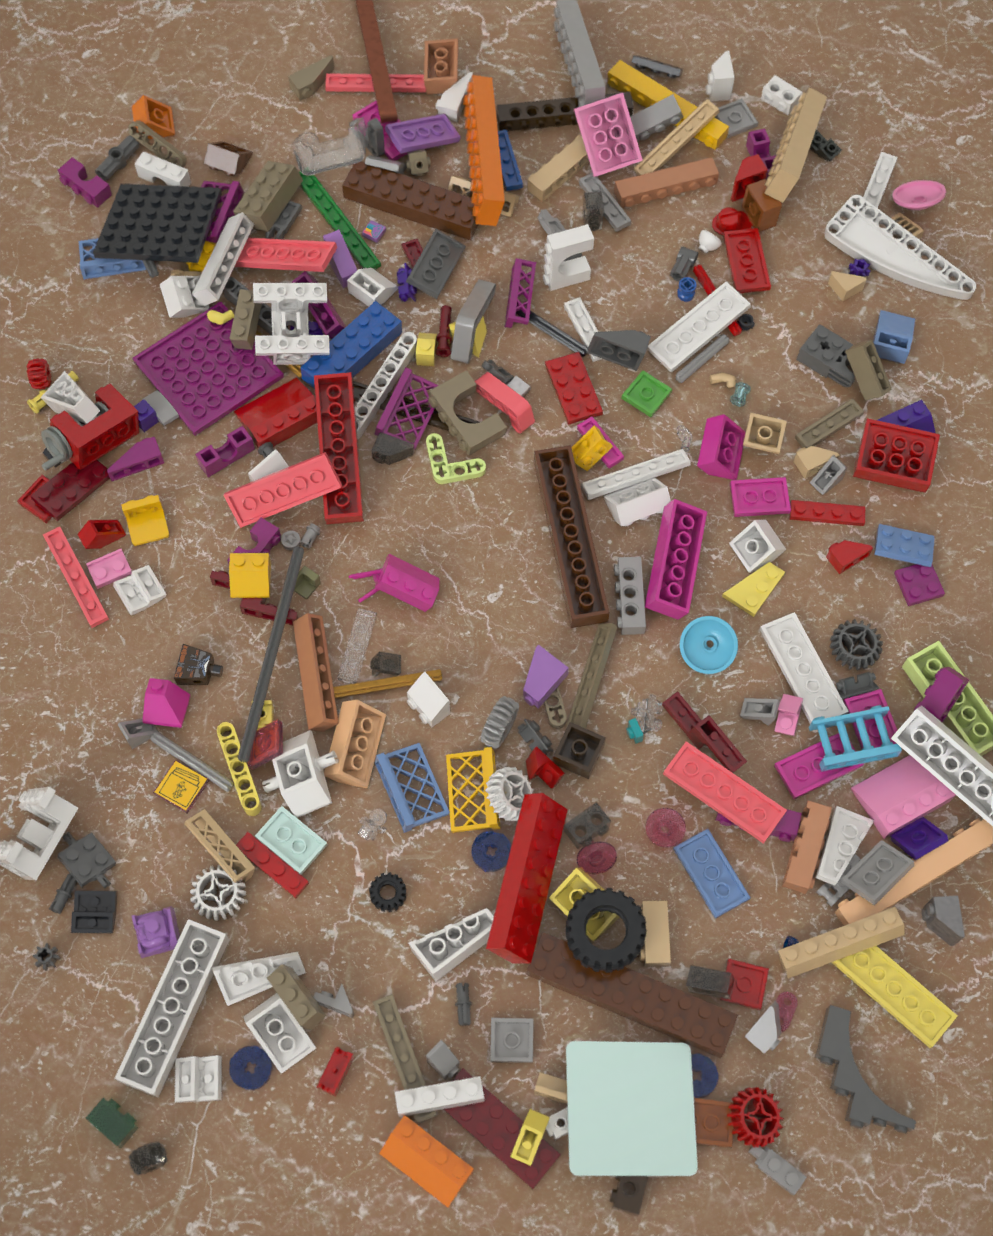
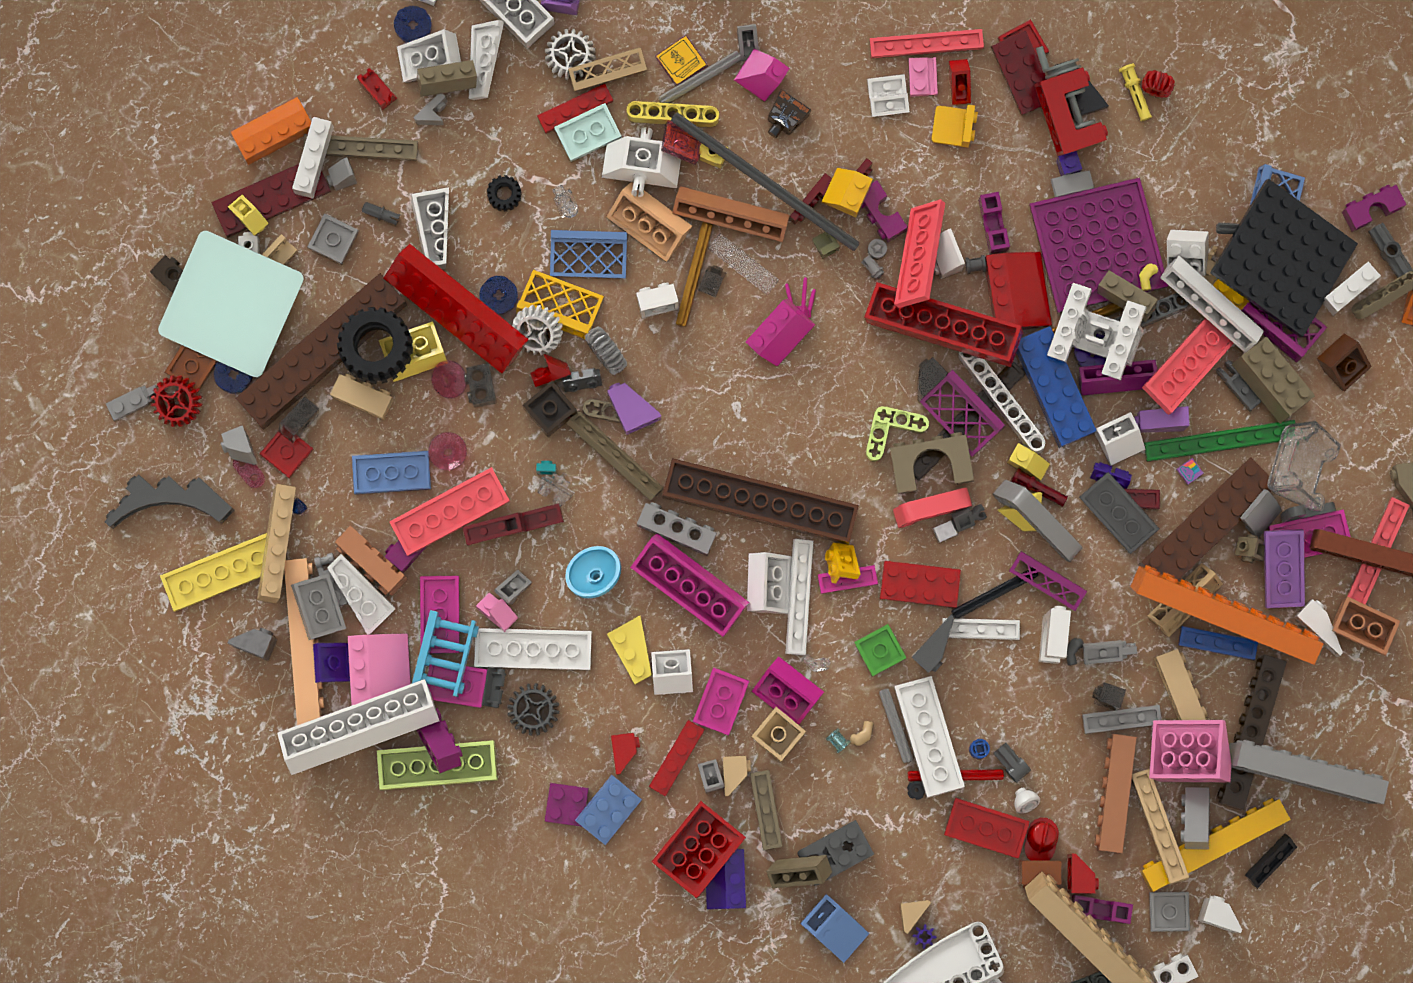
camera: 115 degrees right, 15 degrees up
(69, 397) = (1108, 101): white wedge -> none
(137, 459) = (1026, 146): magenta slope -> none

